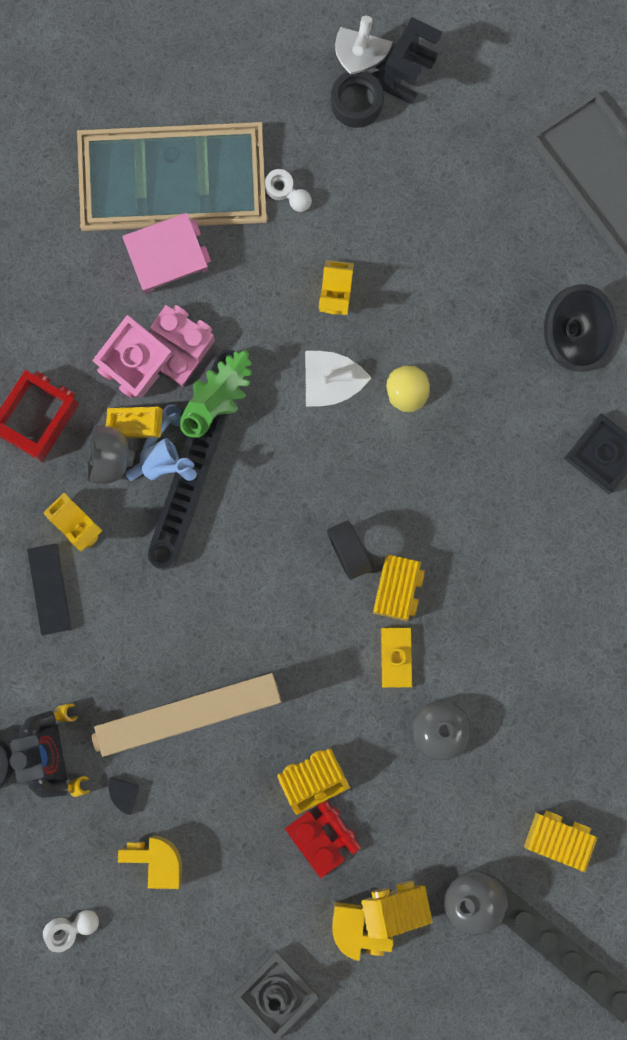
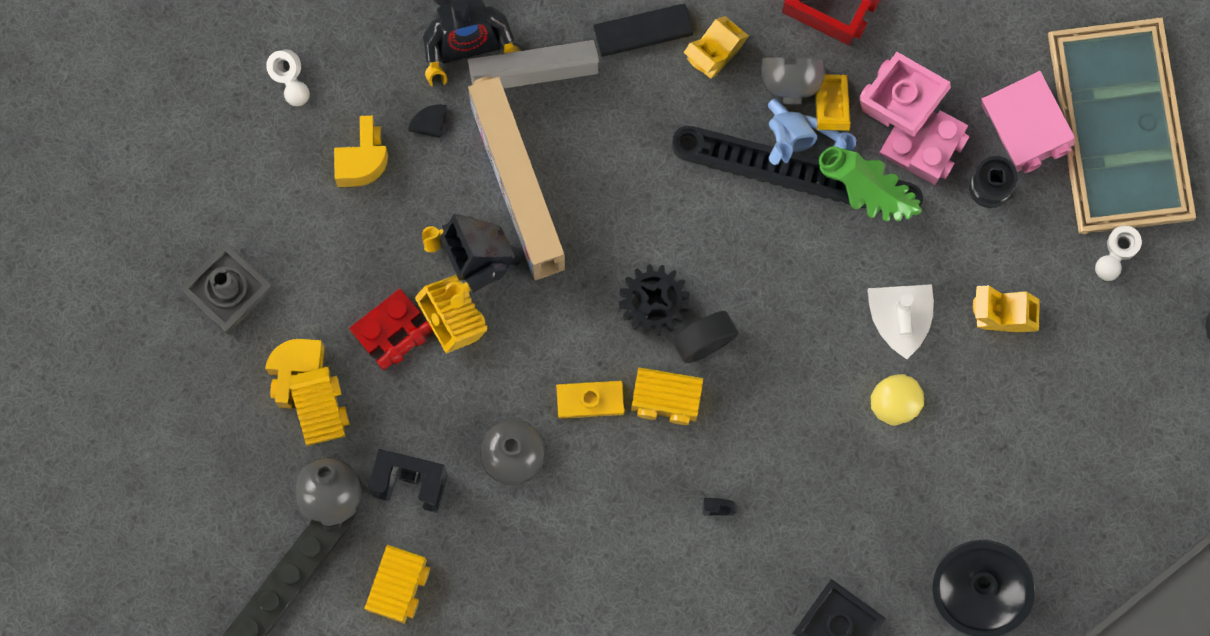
camera: 85 degrees right, 5 degrees down
(77, 692) = (538, 64): none -> light grey panel
(219, 288) = (992, 189): none -> black wheel
(258, 755) = (476, 253): none -> black torso
(298, 585) = (643, 291): none -> black gear
(462, 824) = (412, 471): none -> black panel
(499, 552) = (715, 507): none -> black tile

